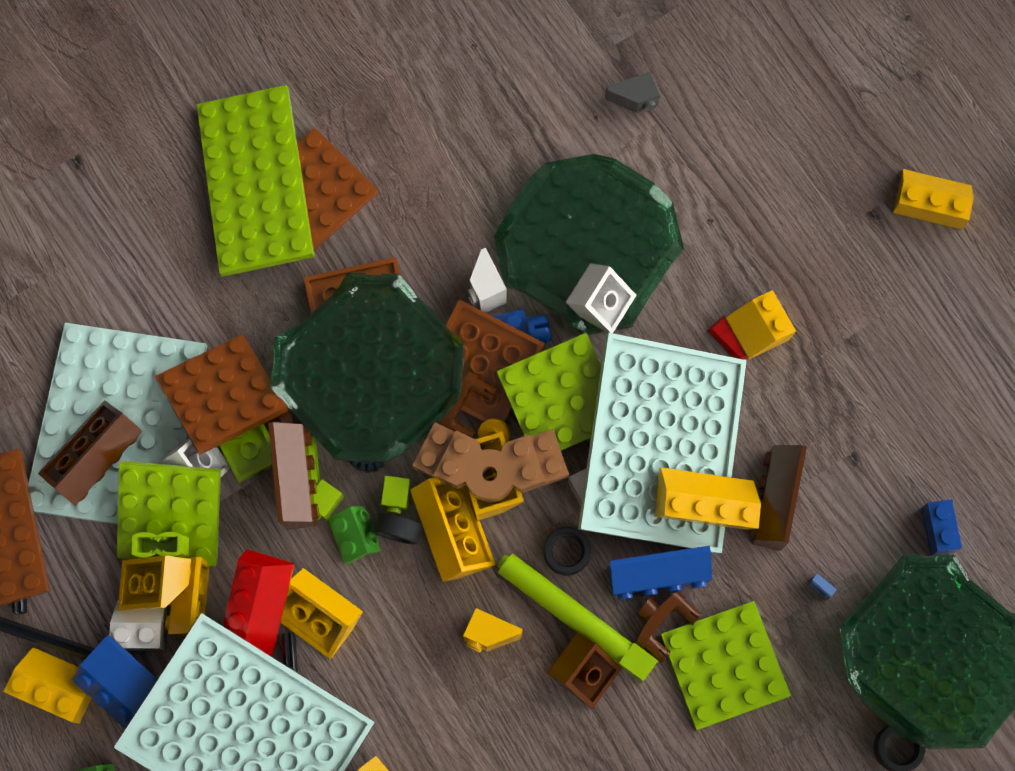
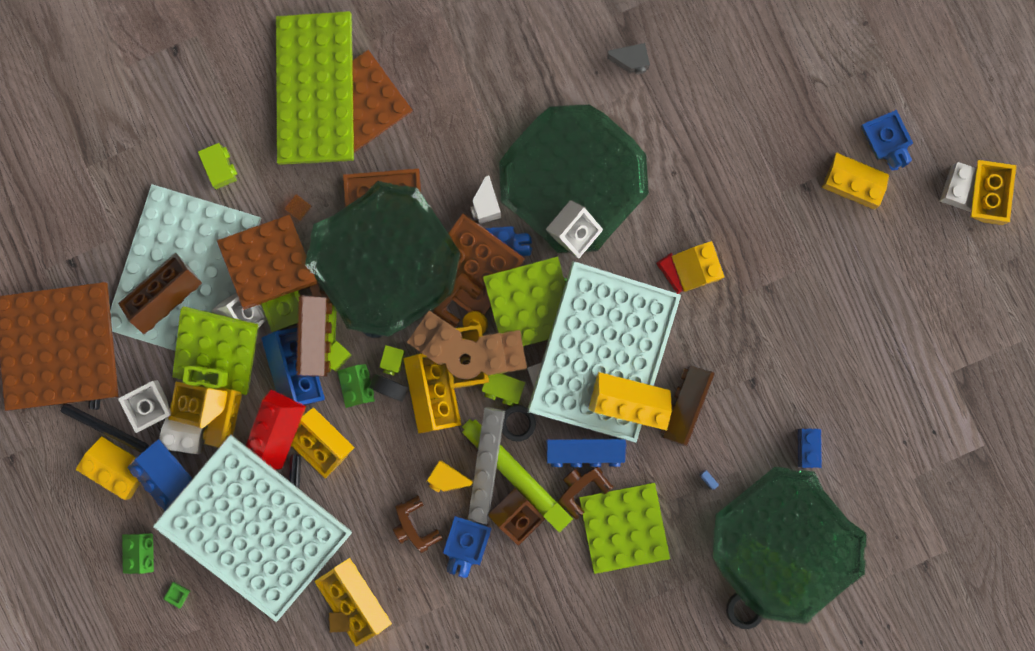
camera: 10 degrees right, 10 degrees up
(86, 596) = (145, 405): none -> white slope
(145, 289) = (218, 166): none -> lime brick
(252, 326) = (298, 207): none -> clear orange tile
(256, 511) = (282, 361): none -> blue slope
(445, 709) = (406, 530): none -> reddish brown connector
(524, 718) = (465, 545): none -> blue plate
(535, 609) = (486, 465): none -> light grey plate
(542, 509) = (504, 388): none -> lime brick
(964, 144) = (889, 139): none -> blue plate

